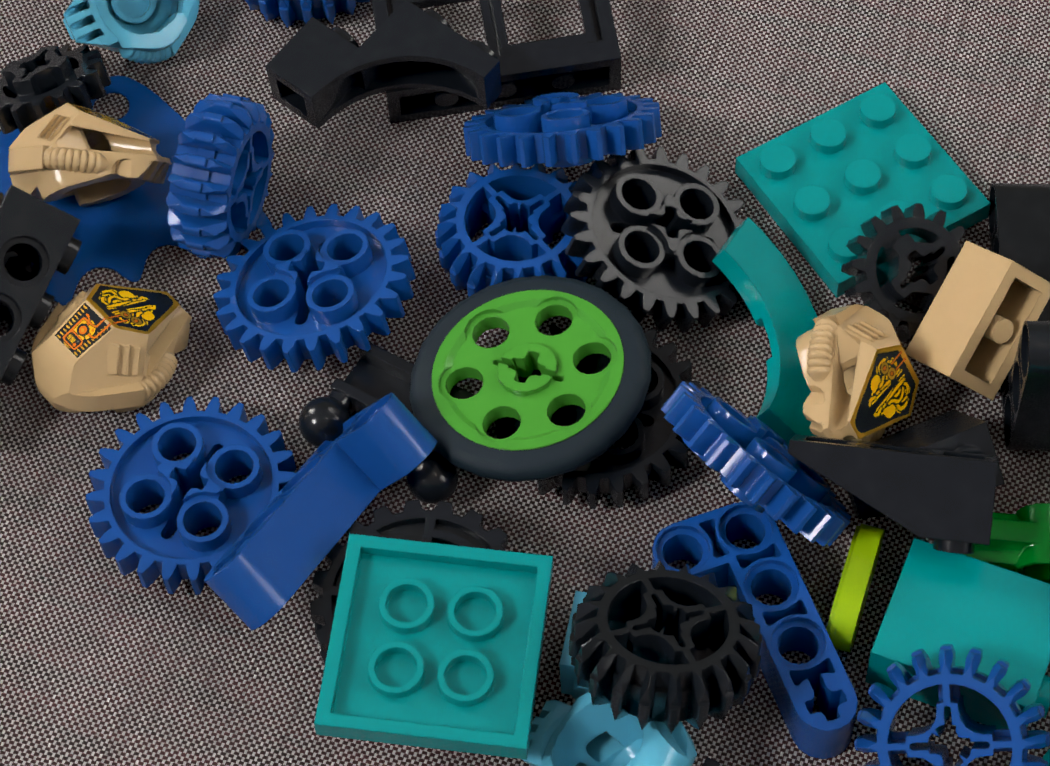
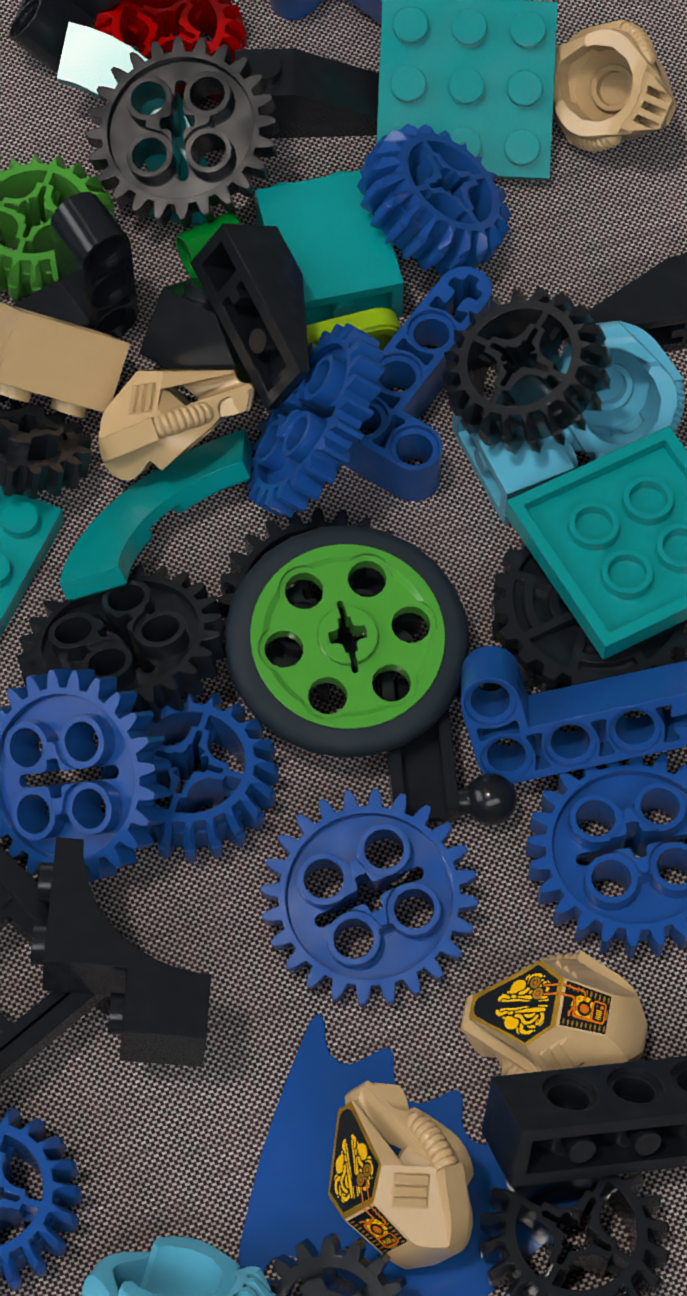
camera: 130 degrees left, 5 degrees up
(220, 175) = (326, 1038): blue gear -> none

